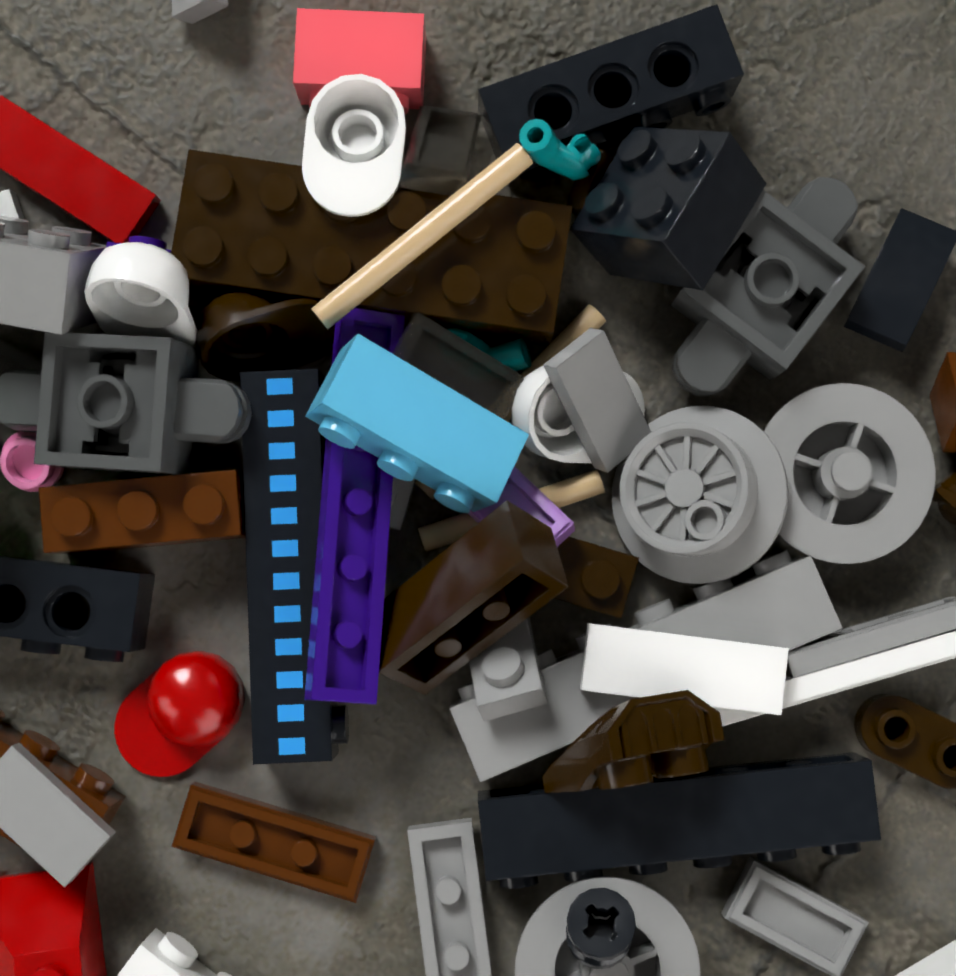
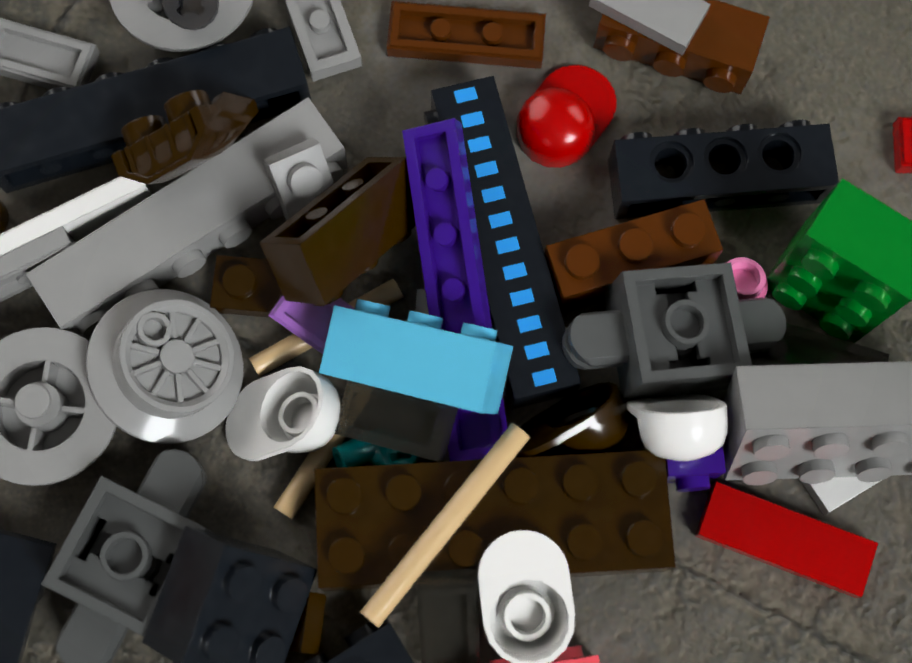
camera: 165 degrees right, 10 degrees down
(552, 154) = (337, 631): teal arm -> none
(597, 399) = (265, 423): light grey tile -> none
(660, 663) = (154, 211): white tile -> none

